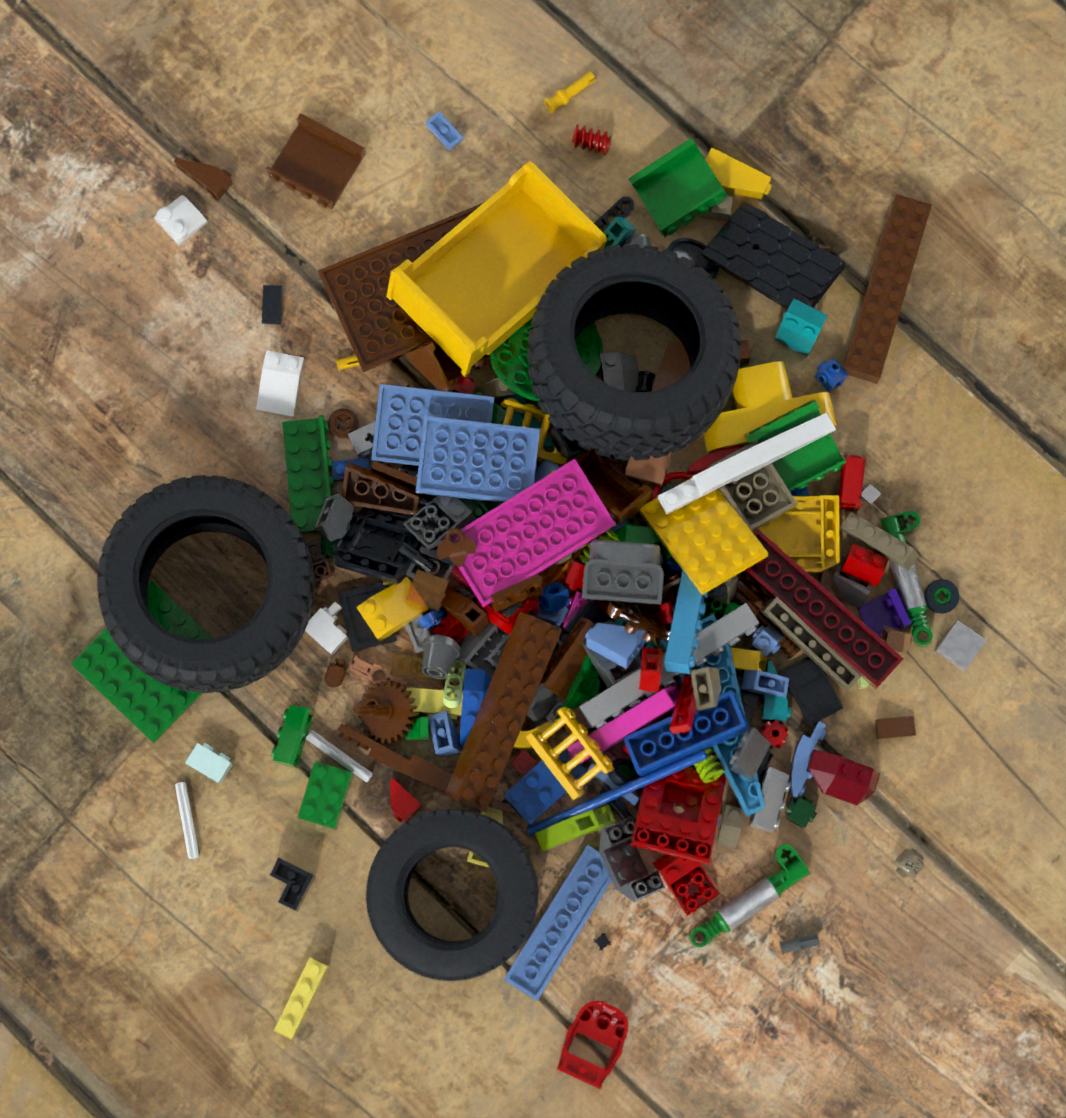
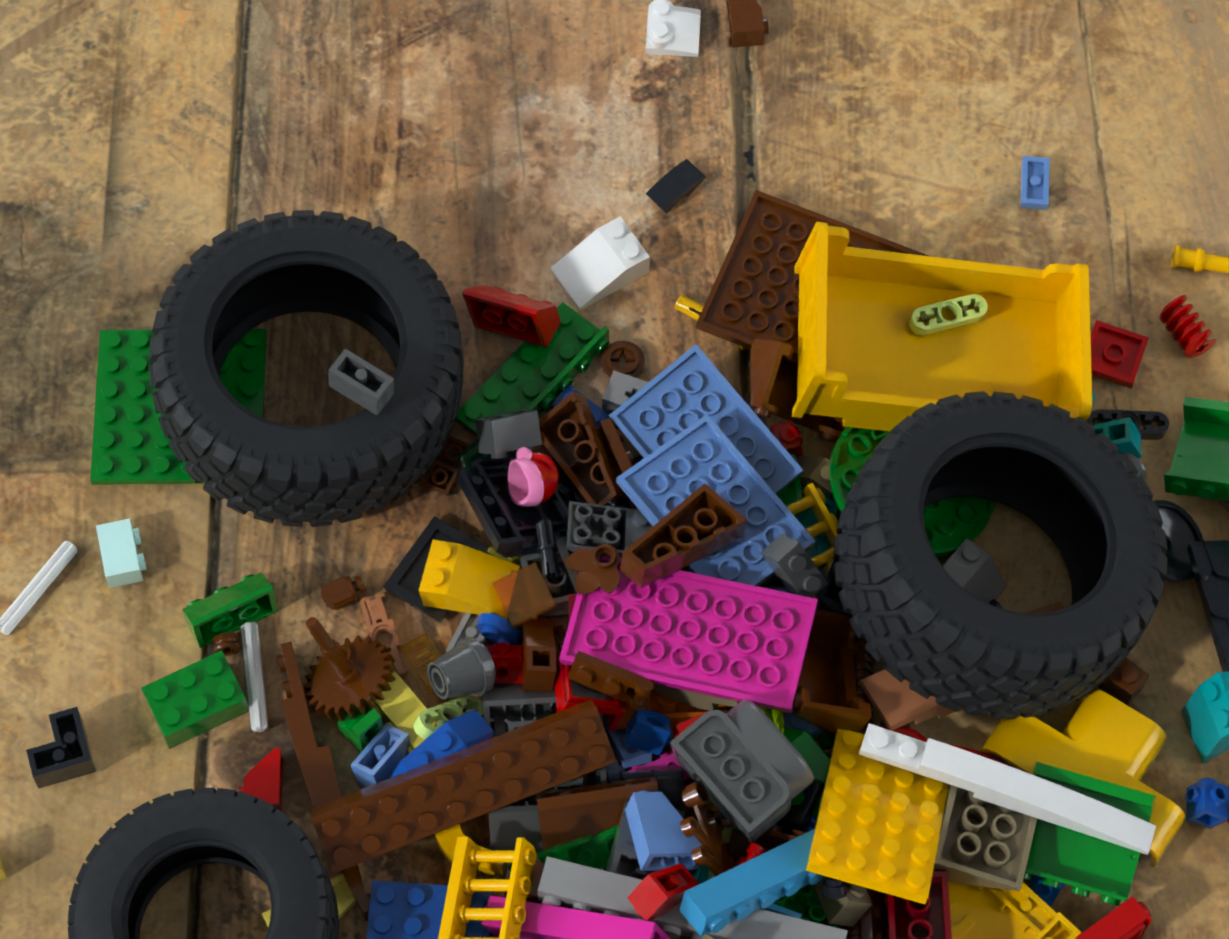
camera: 45 degrees right, 15 degrees down
(258, 571) = (361, 382): none -> dark grey brick
(268, 453) = (512, 314): none -> red slope
(309, 754) = (227, 643): none -> reddish brown bush
(317, 162) = (869, 98): reddish brown panel -> none
(323, 629) = (381, 537): white hinge -> none
(371, 530) = (531, 478): none -> bright pink piece
(483, 256) = (956, 305): none -> yellowish green beam
(483, 487) = (683, 536): none -> reddish brown wedge
(523, 763) = (433, 872): red plate -> none
(545, 453) = (794, 567): none -> dark grey brick
(574, 184) = (1116, 353): none -> red plate

